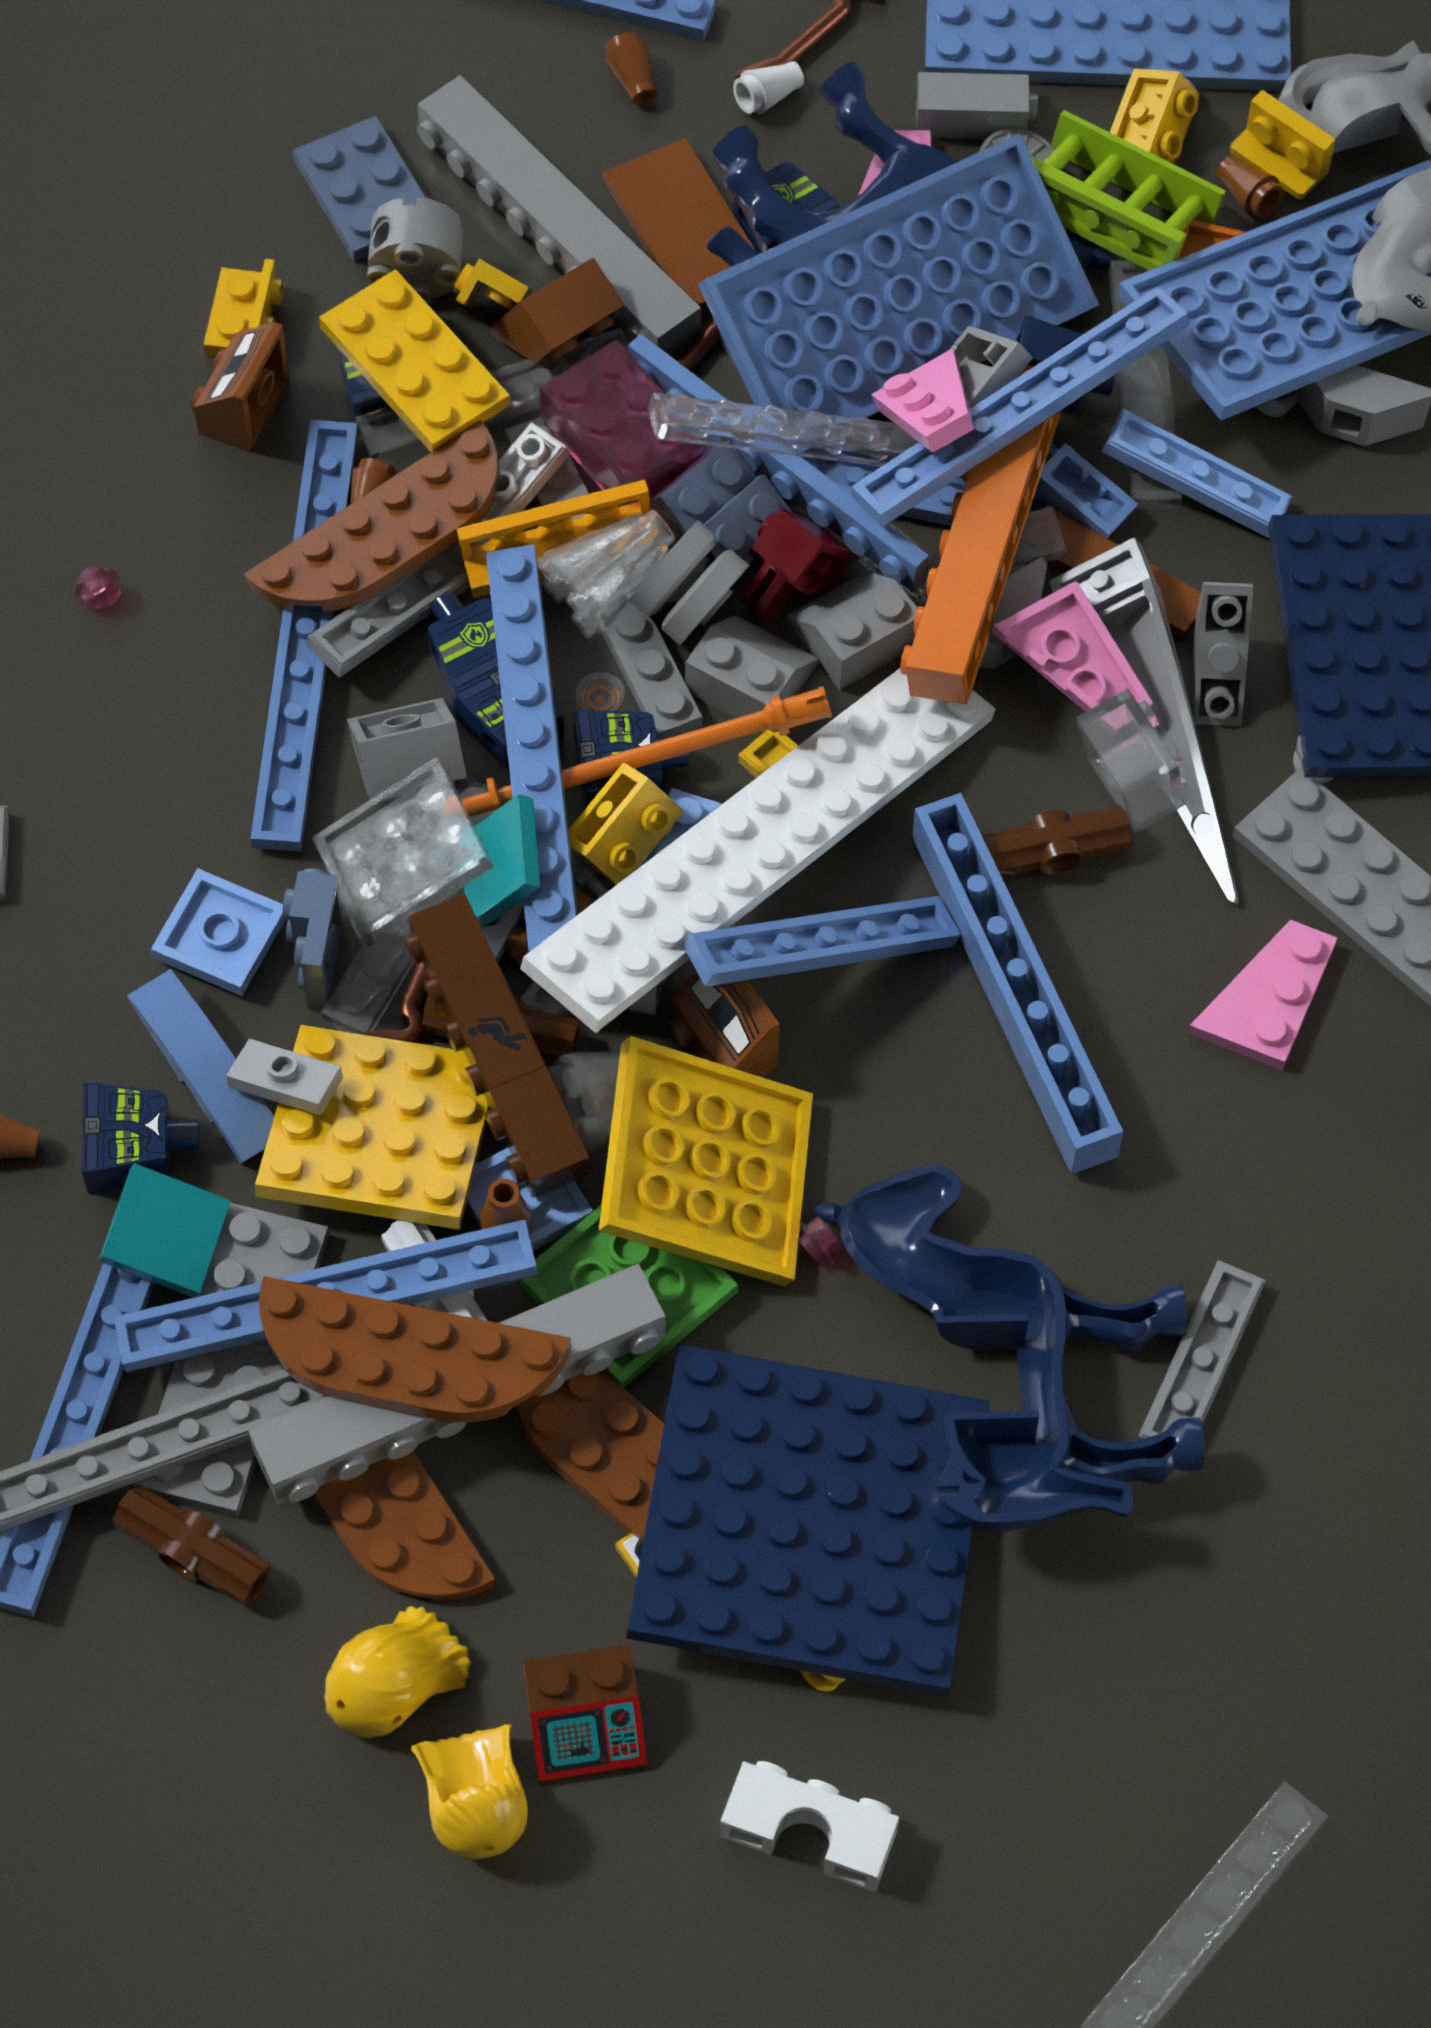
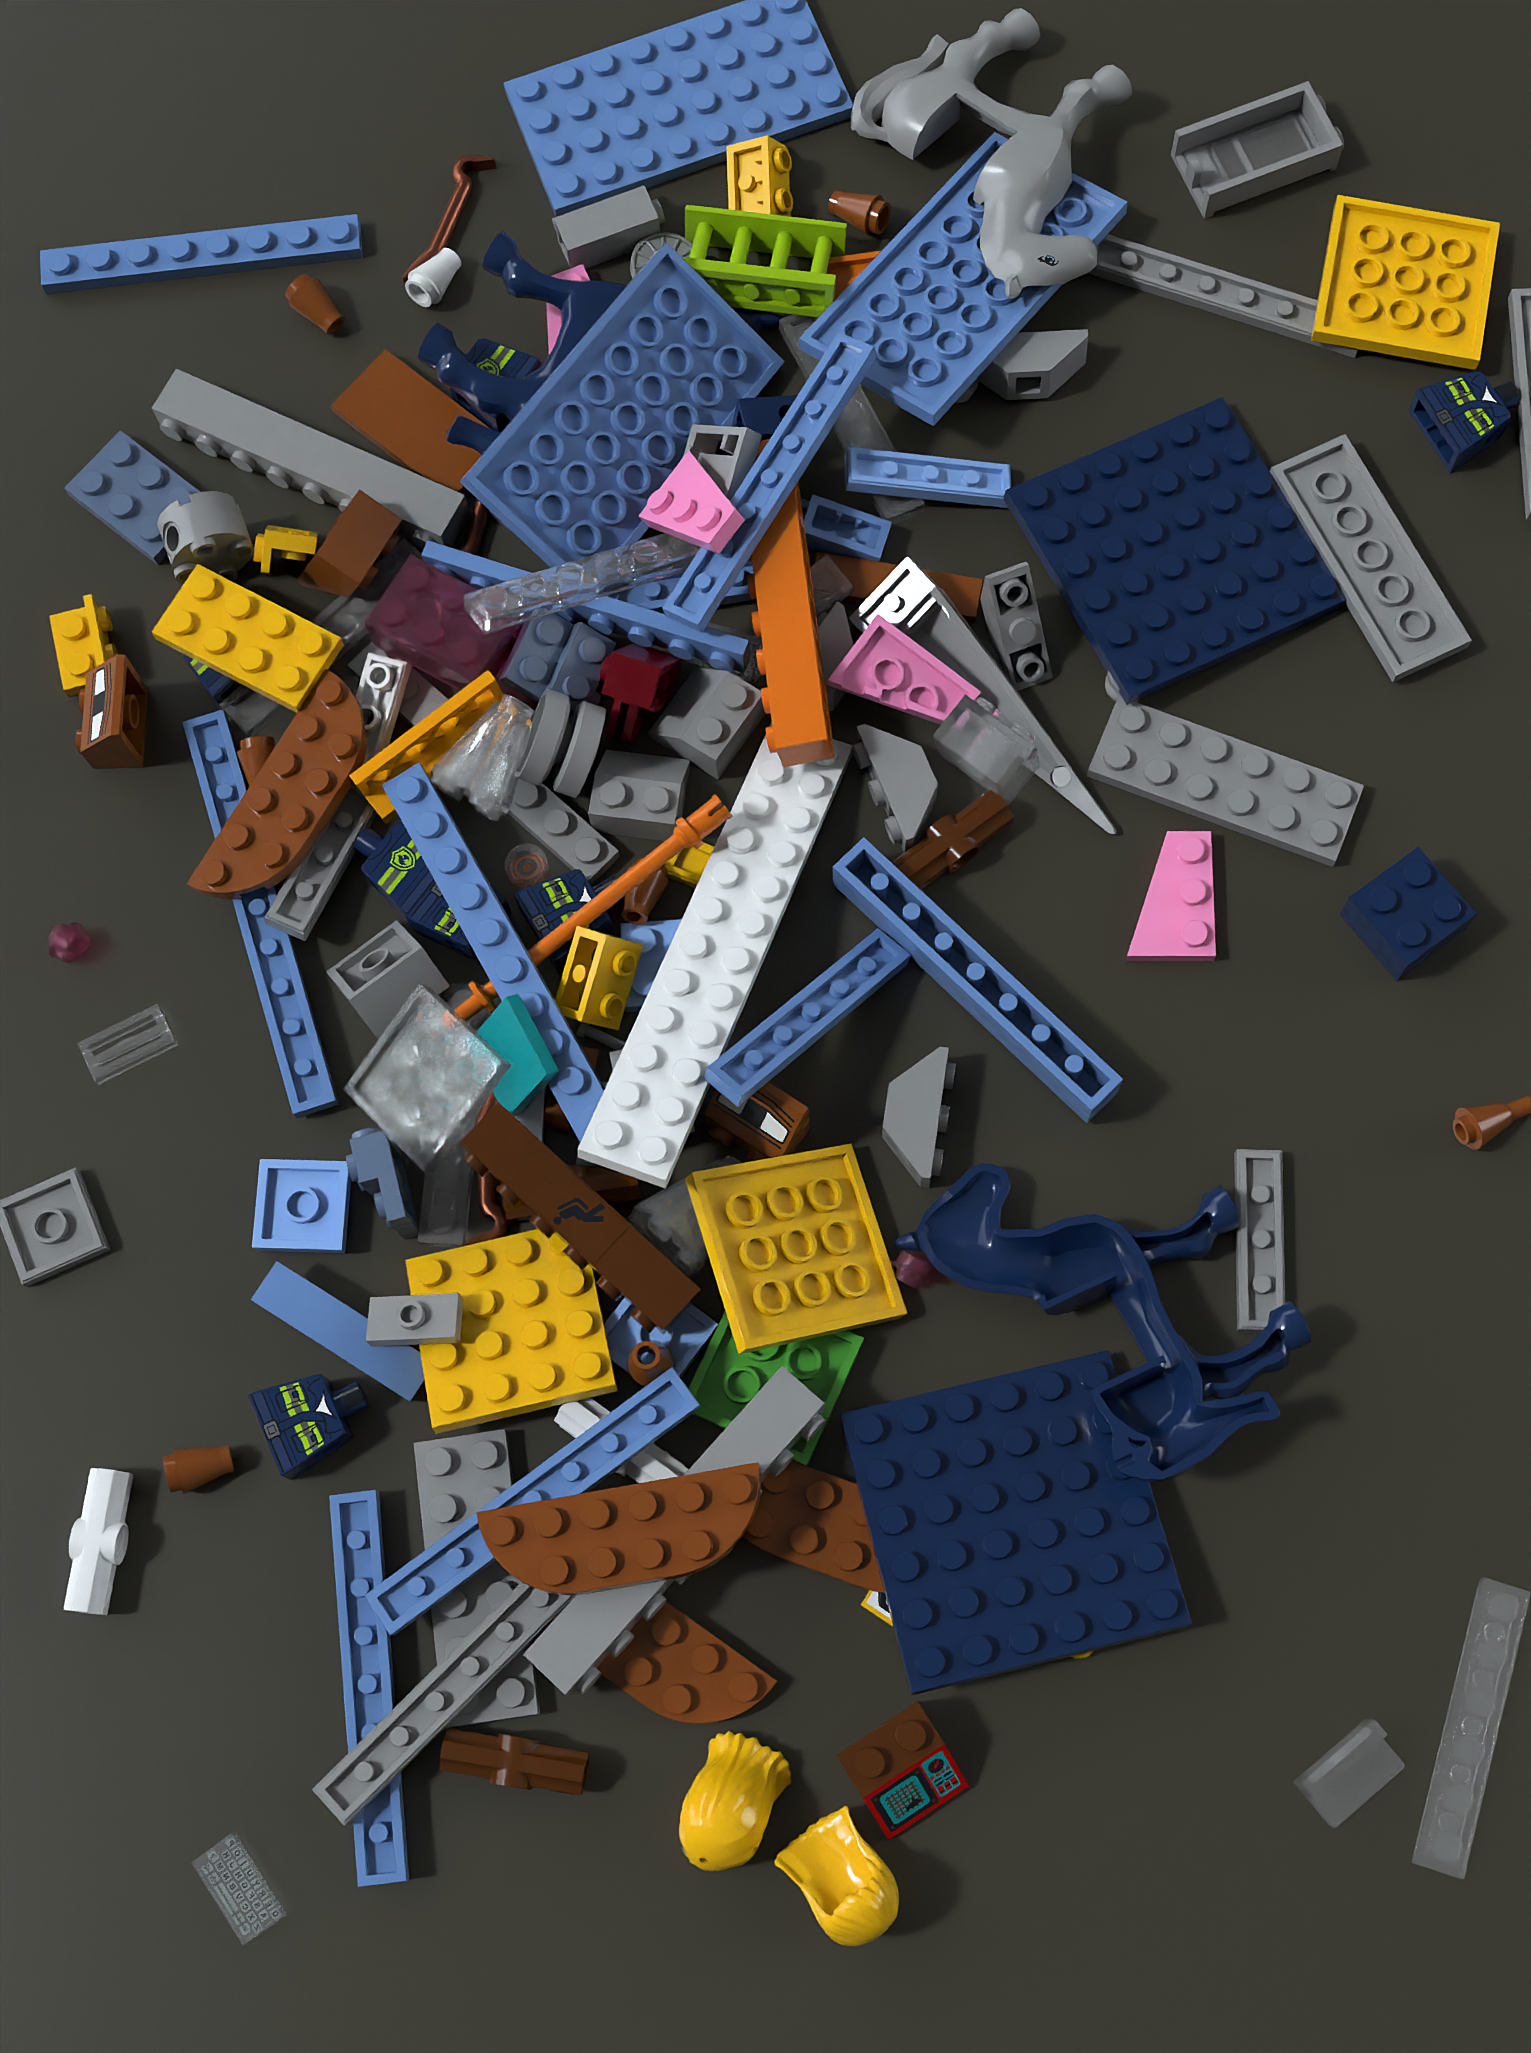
camera: 15 degrees left, 10 degrees up
(113, 718) = (134, 1058): none -> clear tile
(164, 1230) = (372, 1496): teal tile -> none
(710, 766) = (644, 896): none -> dark orange cone
(769, 1802) = (1169, 1779): white arch -> none
(896, 1089) = (916, 1115): none -> light grey slope
(1027, 762) = (899, 782): none -> light grey slope
(1051, 1912) = (1350, 1773): none -> clear panel
(1284, 145) = (874, 165): yellow bracket -> none

